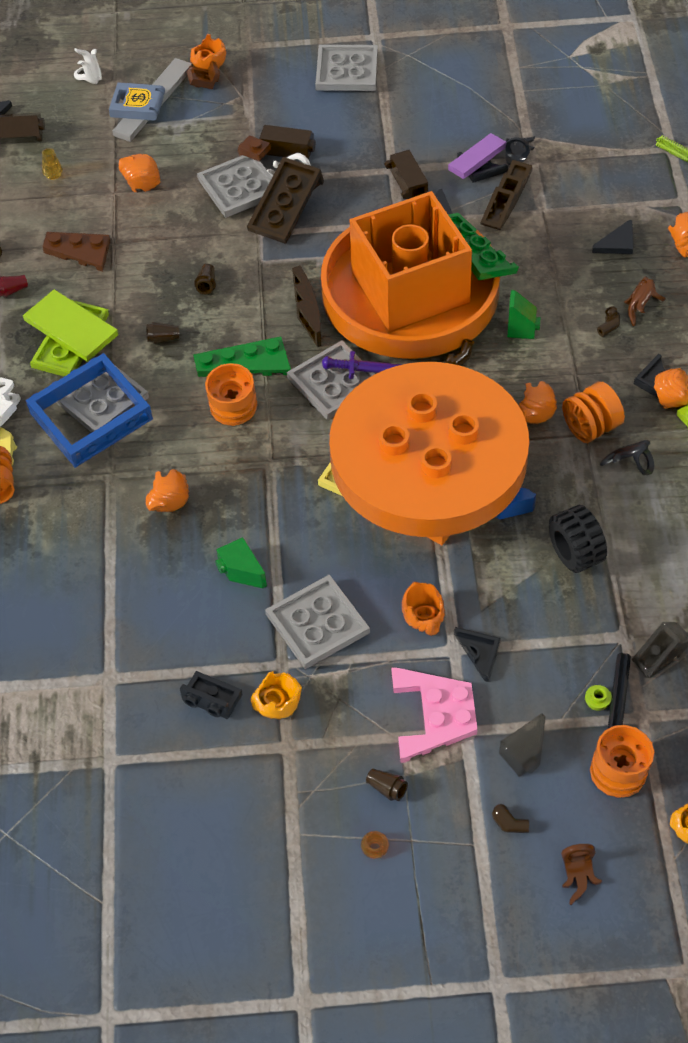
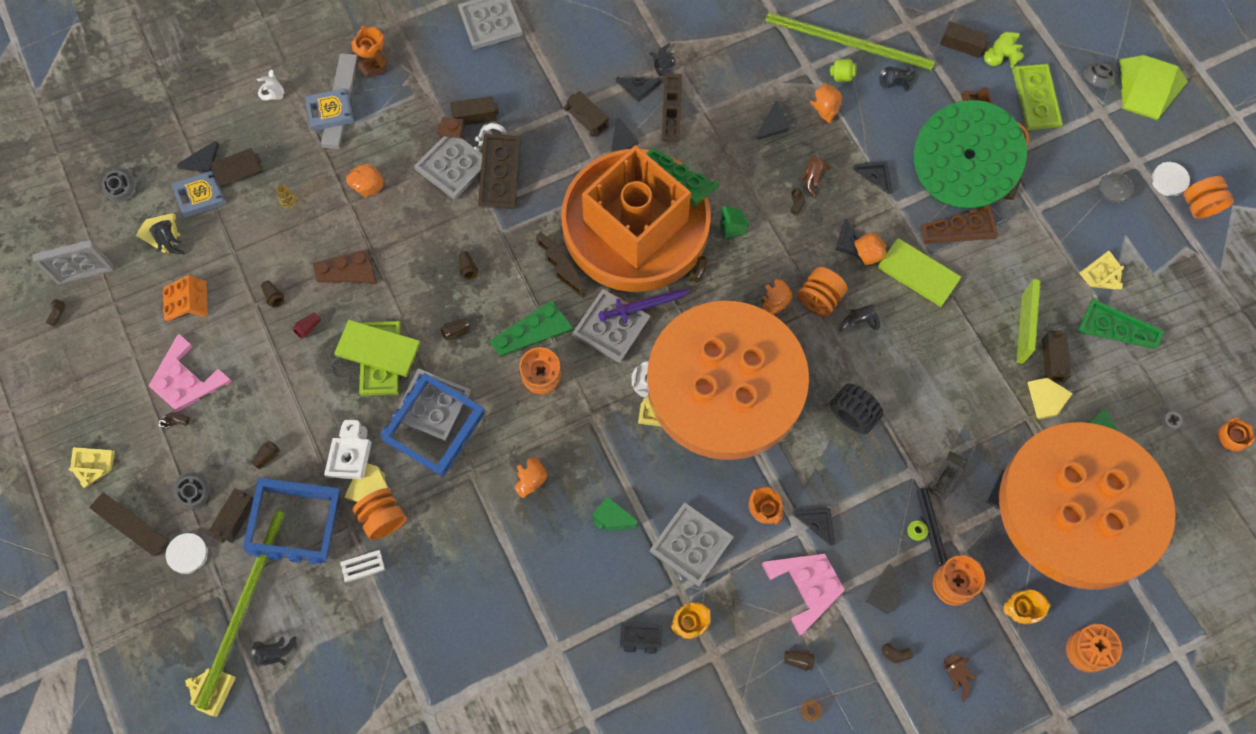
camera: 25 degrees left, 15 degrees up
(477, 156) = (634, 77): medium lavender tile -> none

